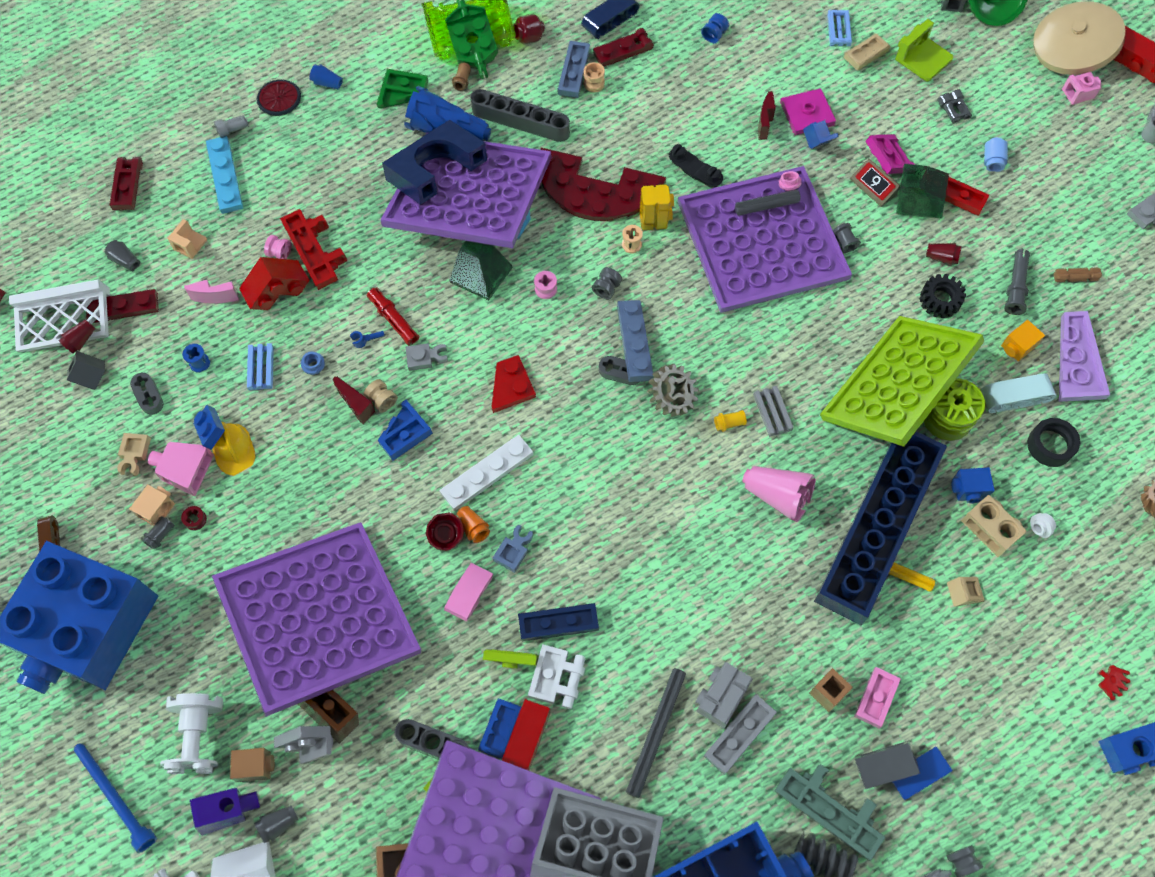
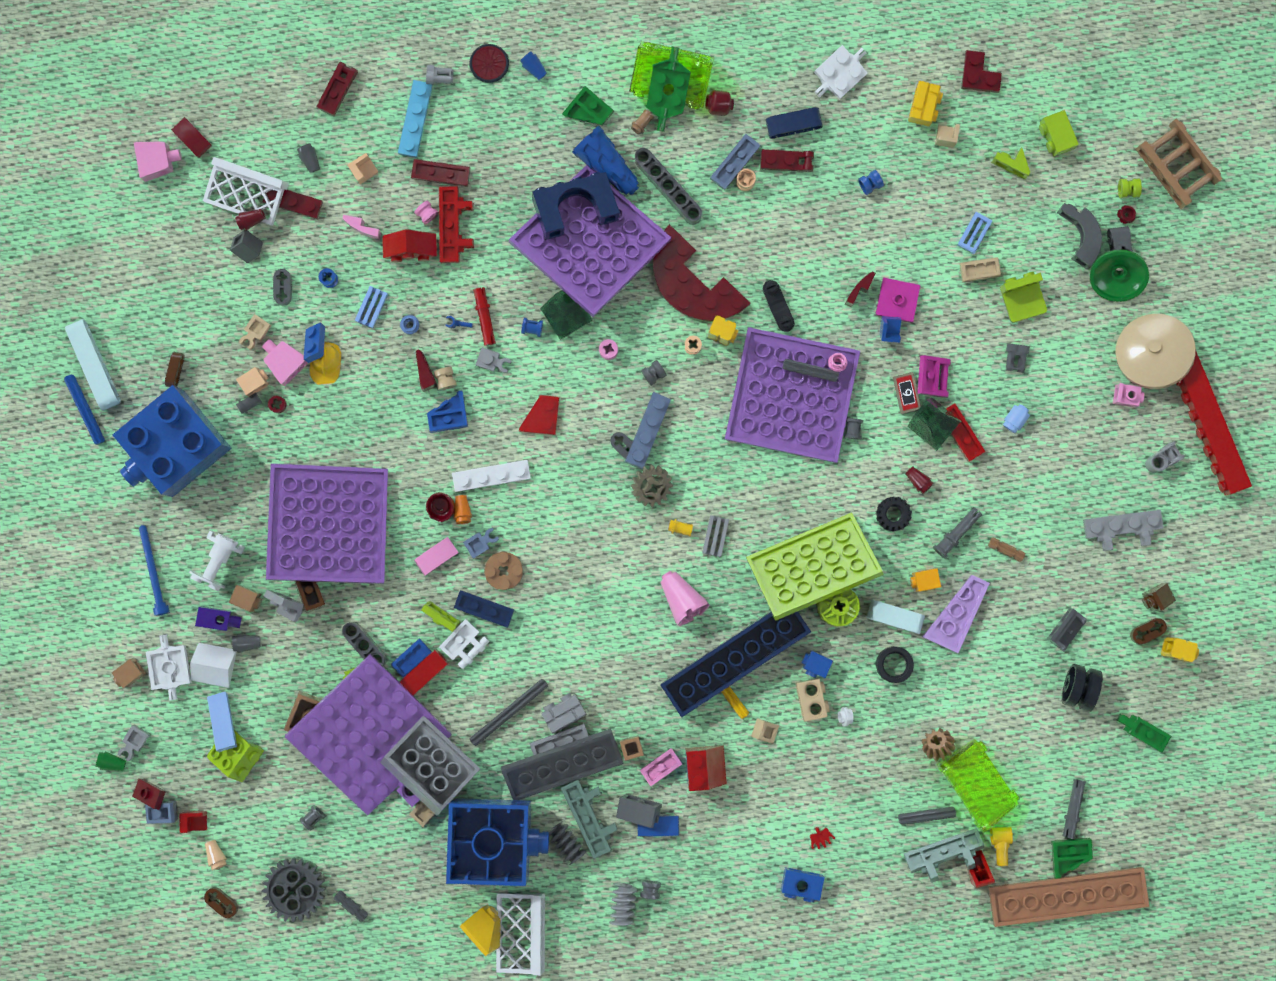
camera: 30 degrees right, 20 degrees up
(274, 207) = (440, 172): none -> dark red plate
(451, 301) = (532, 327): none -> blue bush
(566, 579) = (514, 569): none -> medium nougat plate
(759, 760) = (562, 765): none -> dark grey plate
(926, 668) = (705, 767): none -> red slope

